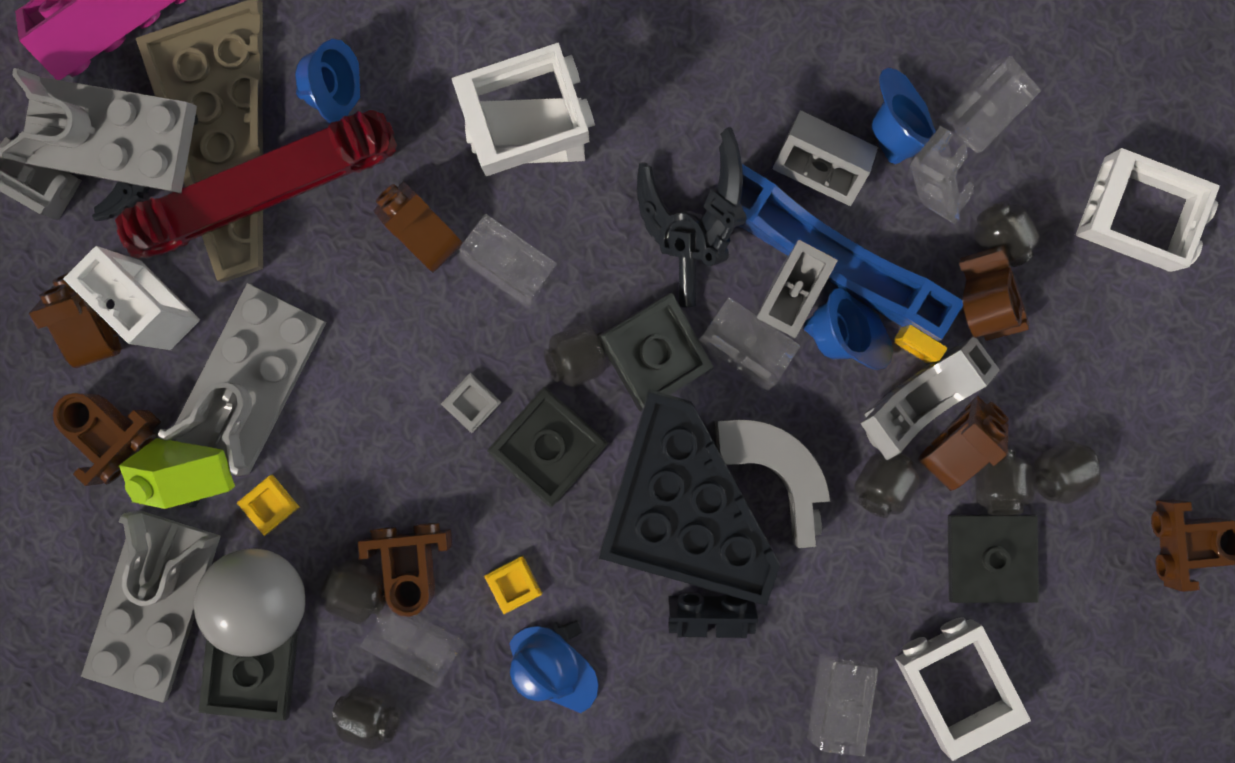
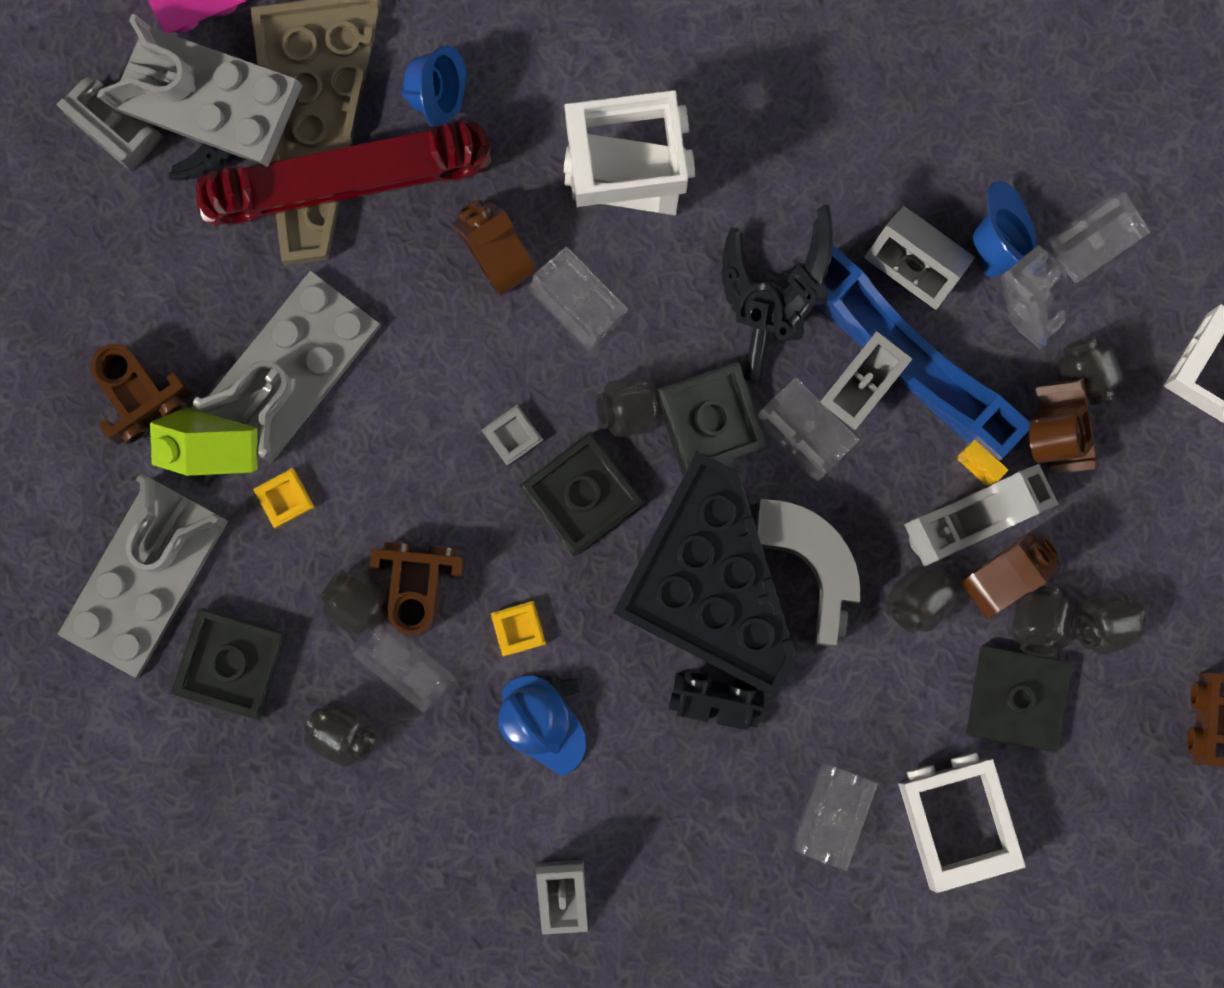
camera: 10 degrees right, 5 degrees down
(74, 325) = (135, 273): reddish brown pin -> none
(144, 306) = (199, 261): white window -> none
(249, 602) = (251, 586): light grey piece -> none
(850, 331) = (913, 434): blue piece -> none

